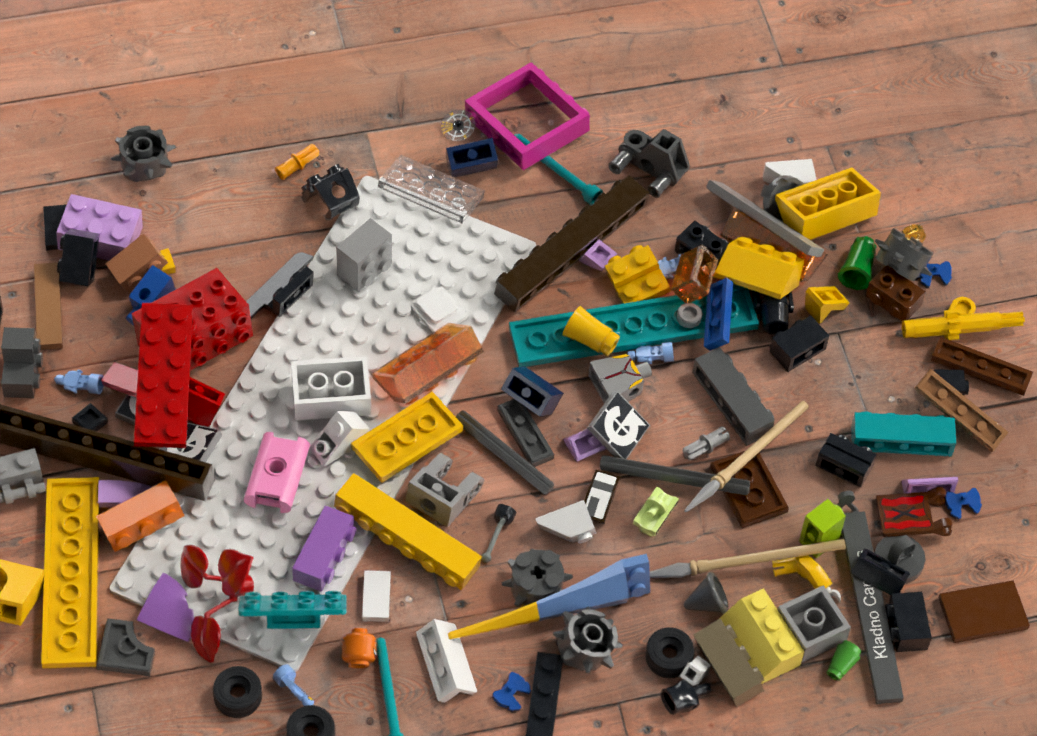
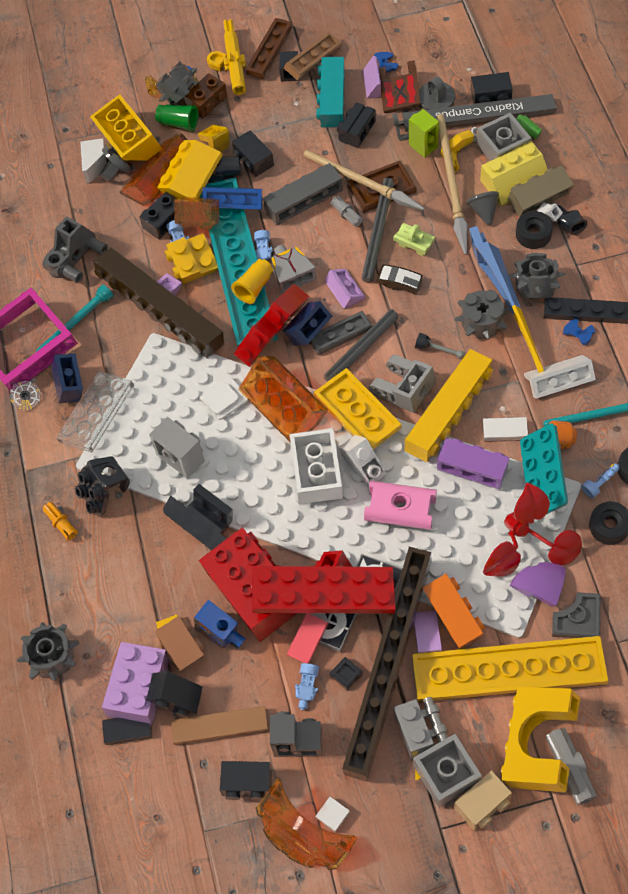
camera: 80 degrees left, 5 degrees up
(534, 353) = (270, 324): none -> red arch
(569, 523) = (428, 293): white slope -> none
(618, 426) = (337, 264): tile -> none
(689, 315) = (230, 220): light grey tile -> none
(765, 219) = (140, 169): light grey tile -> none
(880, 572) = (455, 102): black slope -> none
(983, 611) = (475, 51): reddish brown tile -> none

